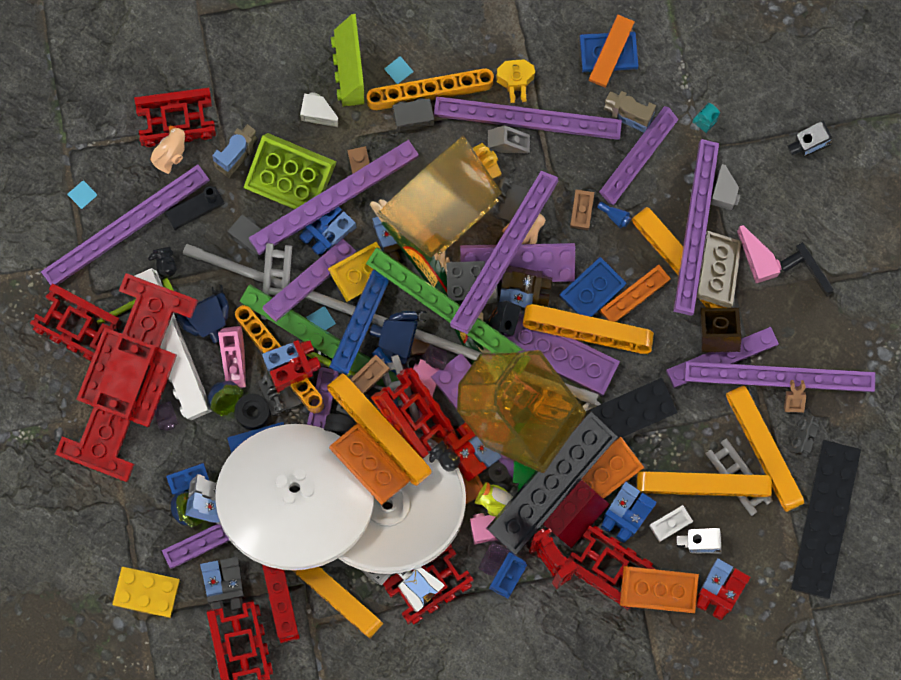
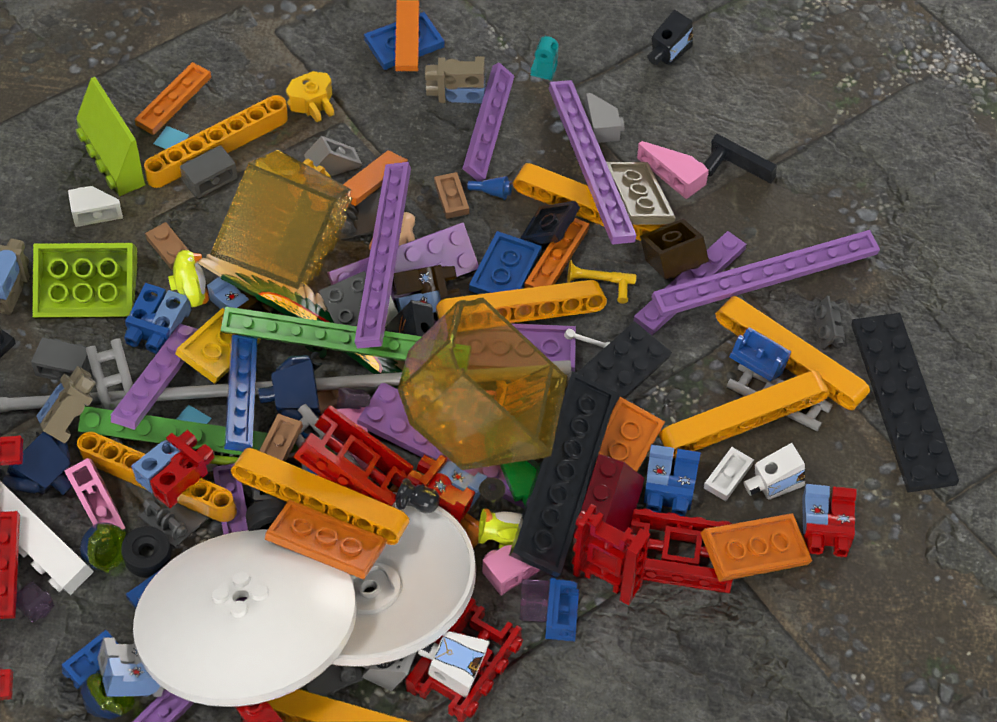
camera: 20 degrees left, 20 degrees down
(237, 280) = (66, 403): none -> dark tan hips
(334, 196) = (146, 280): medium lavender plate -> none
(360, 210) = (189, 278): none -> neon yellow animal
(413, 35) = (172, 98): none -> orange plate
(527, 118) = (346, 129): medium lavender plate -> none
(528, 173) = (371, 177): none -> orange tile
(611, 367) = (570, 334): none -> white hinge
(641, 268) = (550, 223): none -> black plate
(673, 333) = (616, 277): none -> yellow piece
(739, 442) = (760, 354): none -> blue hinge
(796, 399) = (798, 290): medium nougat plate -> none

